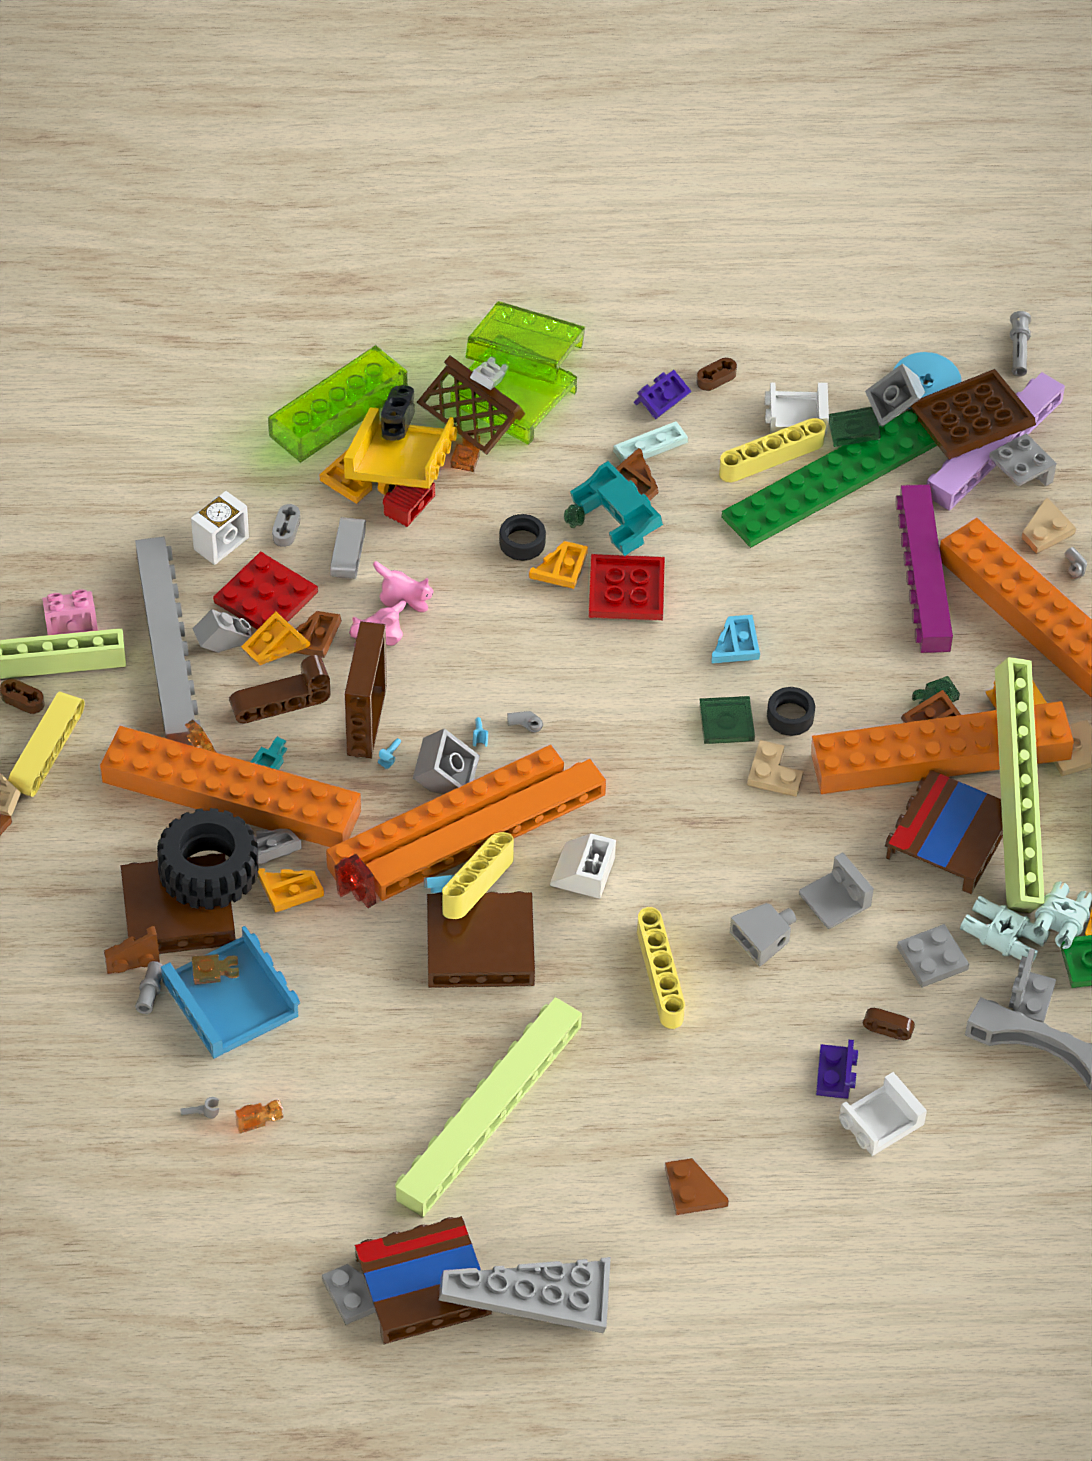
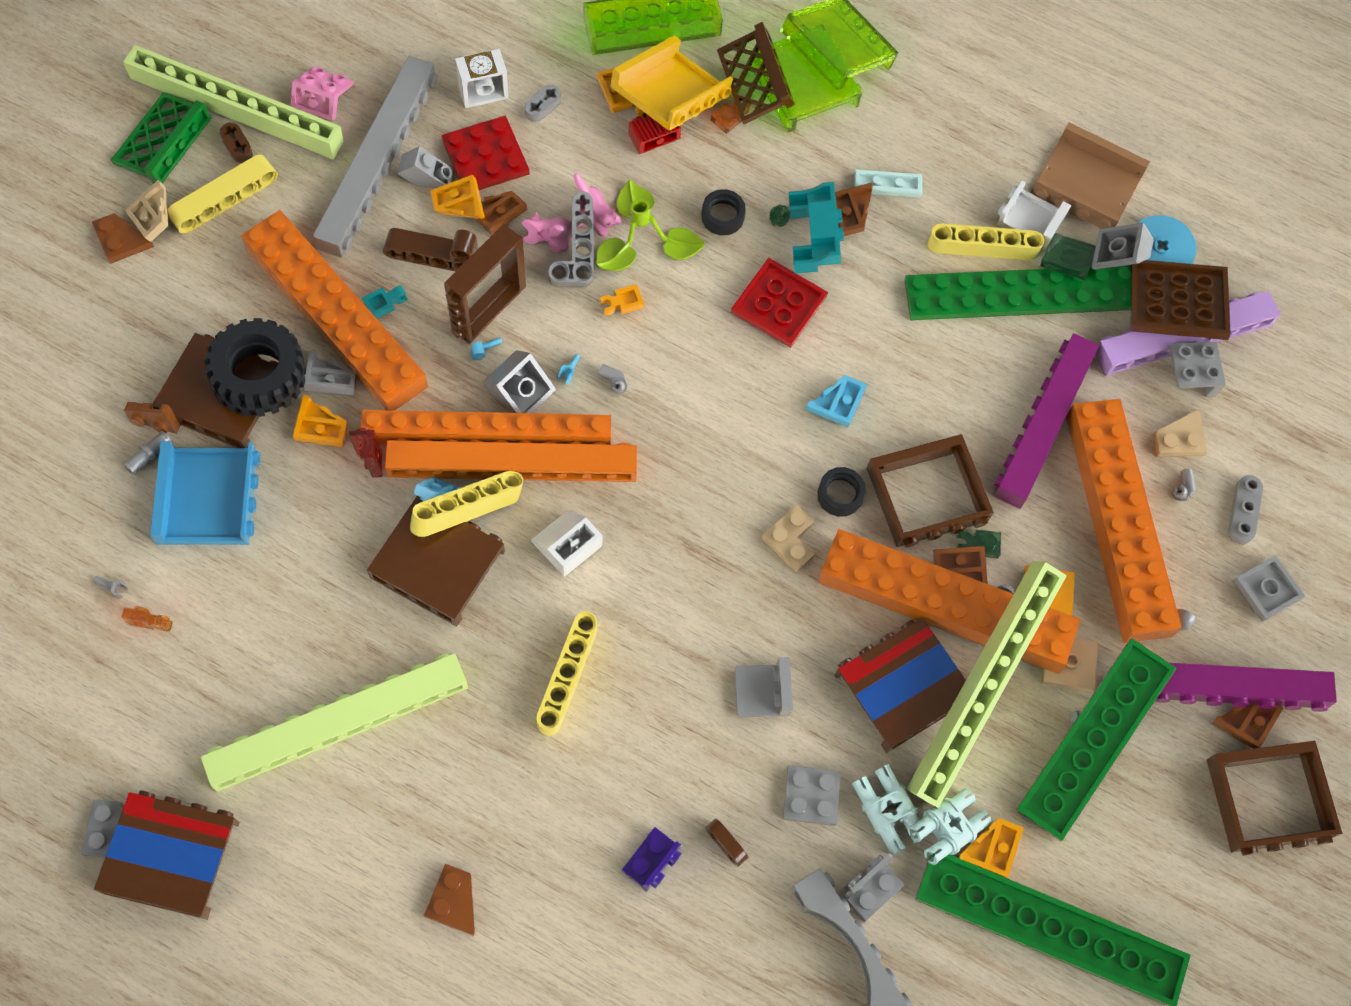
camera: 25 degrees right, 15 degrees up
(198, 737) = (334, 254): clear orange plate -> none
(209, 968) = (204, 463): clear orange plate -> none
(348, 548) = (576, 148): light grey beam -> none
(397, 412) = (693, 51): black piece -> none
(411, 619) = (578, 240): none -> light grey beam
(450, 620) = (637, 203): none -> lime plant
(488, 651) = (626, 299): none -> light orange plate
(489, 373) = (783, 54): light grey hinge -> none
(543, 1291) = (254, 935): light grey wing -> none
(562, 565) = (739, 254): light orange wing -> none
(664, 394) = (926, 145): dark purple bracket -> none
(716, 374) = (985, 149): reddish brown beam -> none
(726, 719) = (782, 469): clear green tile -> none
(762, 931) = (678, 688): light grey torso -> none
(825, 350) = (1090, 177): none -> medium nougat panel
(883, 1115) = (660, 930): white panel -> none
(885, 639) = (919, 454): none -> reddish brown window
(1020, 335) = (1271, 246): light grey pin -> none

